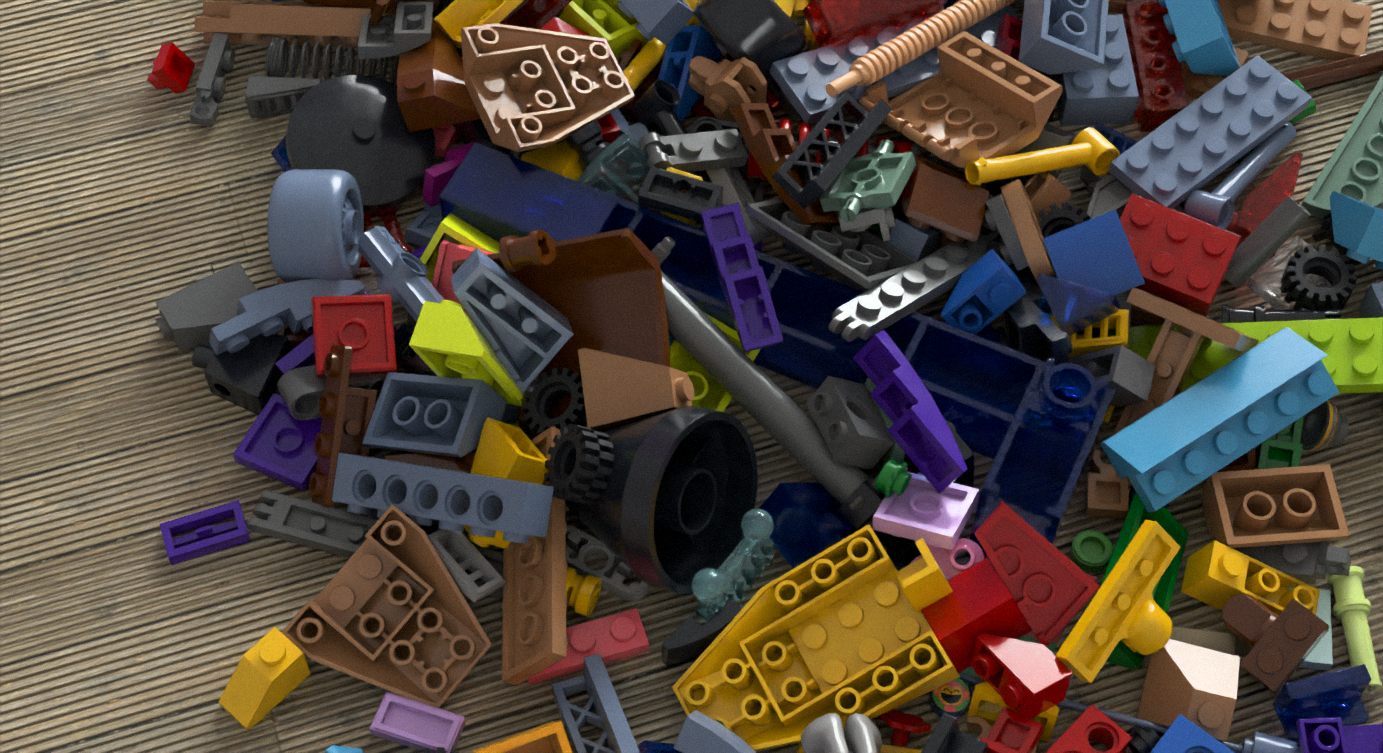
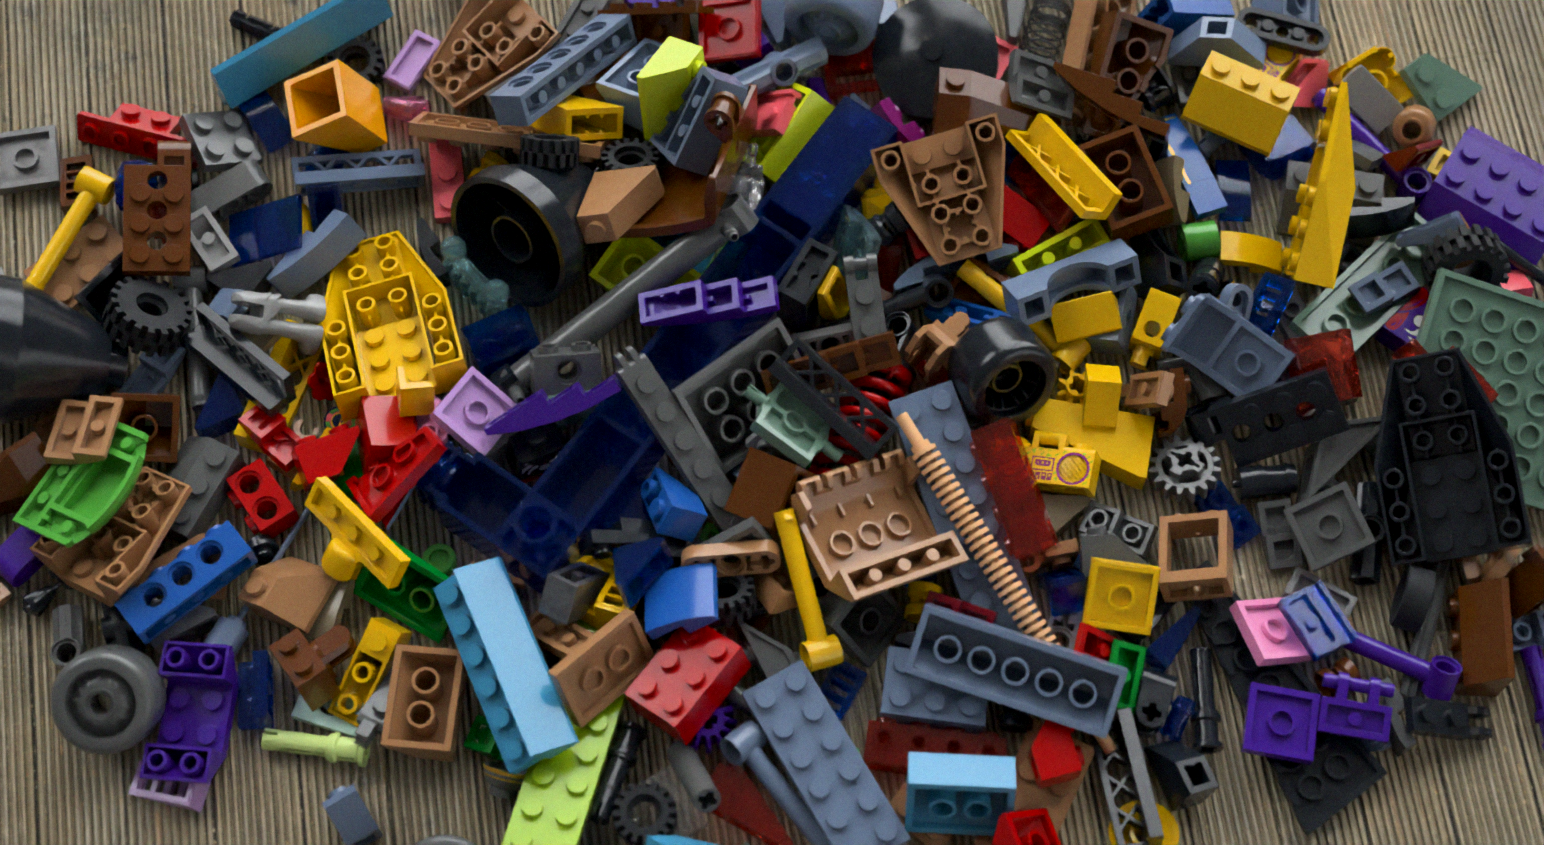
camera: 100 degrees right, 10 degrees up
(495, 709) = (405, 107): none -> clear pink cone
(893, 478) = (502, 388): green plate -> none

